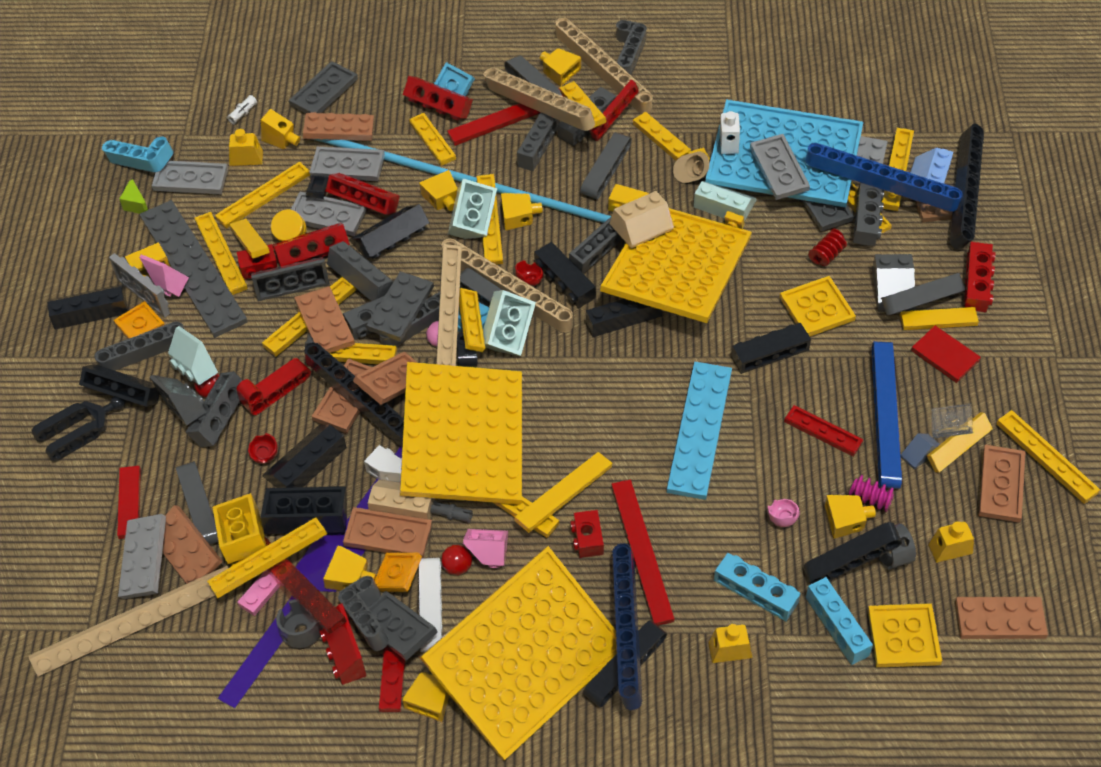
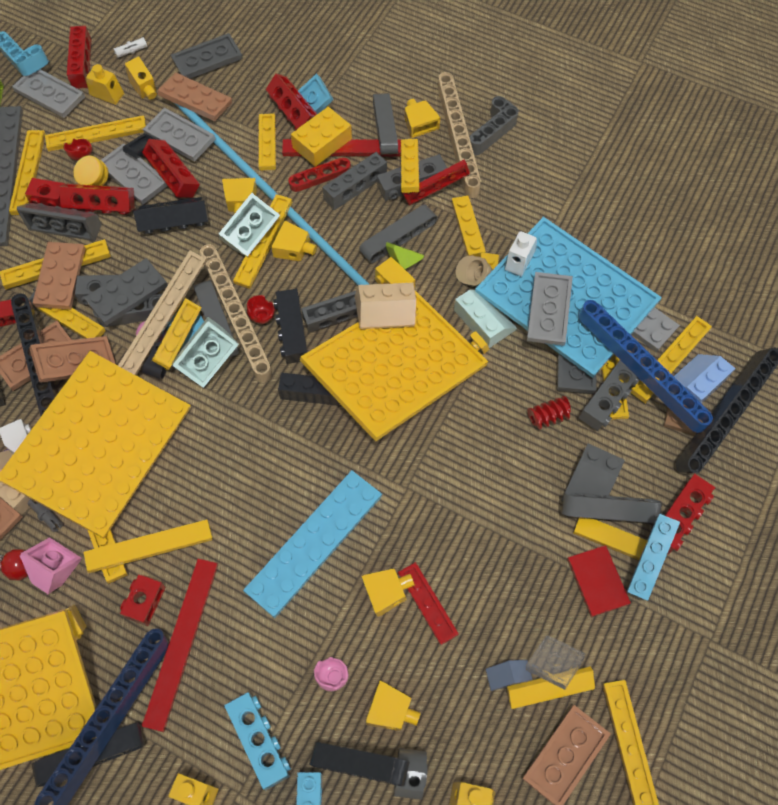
camera: 25 degrees right, 10 degrees up
(199, 135) = (78, 56): none -> red brick
(249, 238) = (50, 170): yellow tile -> none
(259, 213) = (78, 149): none -> red hair
(358, 271) = (121, 239): dark grey slope -> none
(485, 112) = (321, 136): none -> yellow brick
(492, 158) = (318, 172): none -> red beam
(539, 99) = (373, 145): tan beam -> none
(623, 178) = (403, 256): none -> lime slope
(770, 347) = (430, 491): black brick -> none
(784, 433) = (386, 589): none -> yellow torso
(817, 306) = (502, 469): yellow plate -> none
(872, 492) = (428, 699): dark pink piece -> none
(886, 415) = (495, 620): blue beam -> none
(978, 312) = (653, 556): none -> medium azure brick

